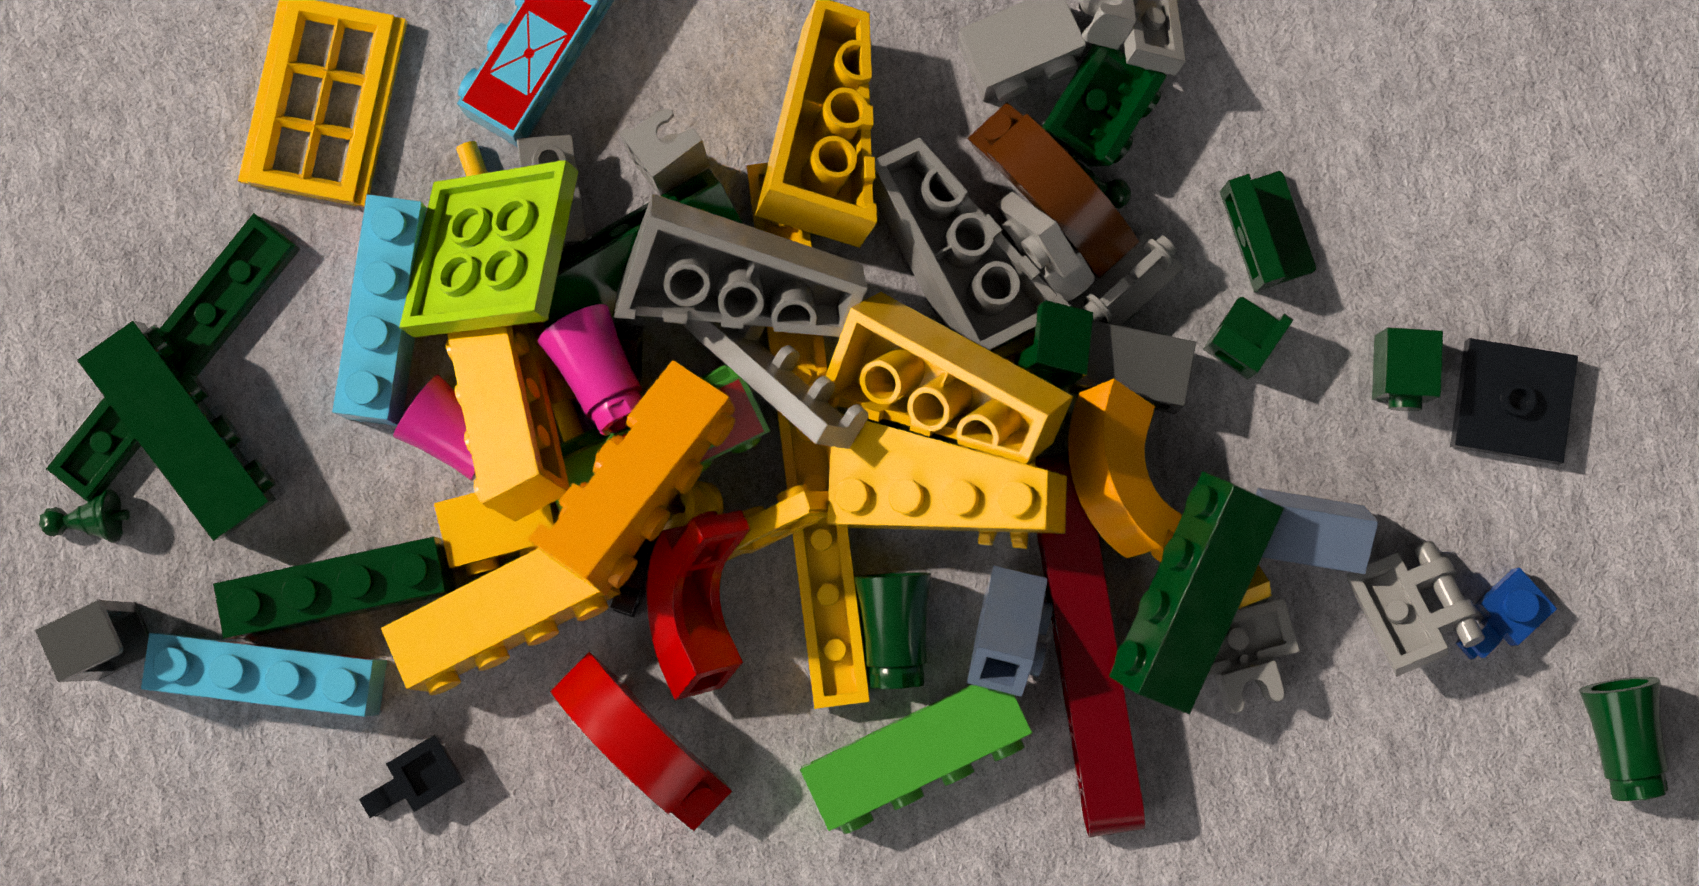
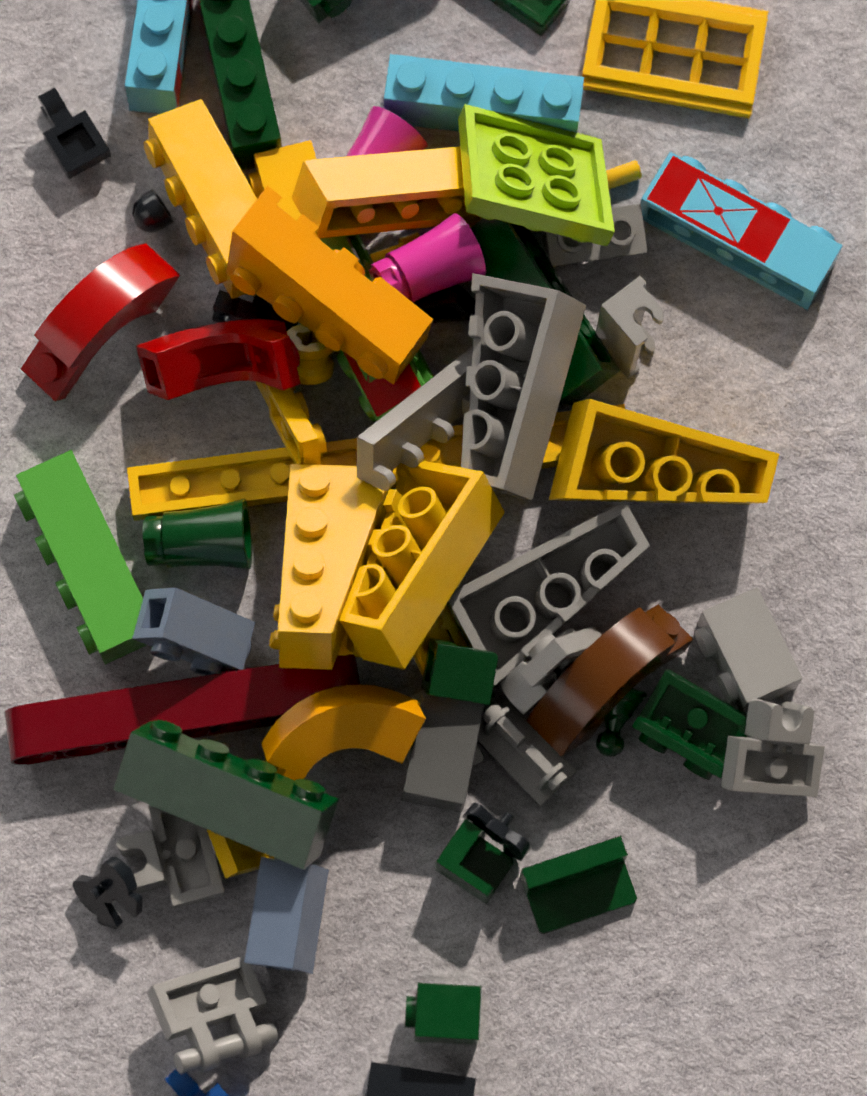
camera: 85 degrees right, 10 degrees down
(510, 686) = (151, 213): none -> black hinge
(1219, 308) = (498, 830): none -> black piece
(1282, 723) = (112, 883): none -> black piece

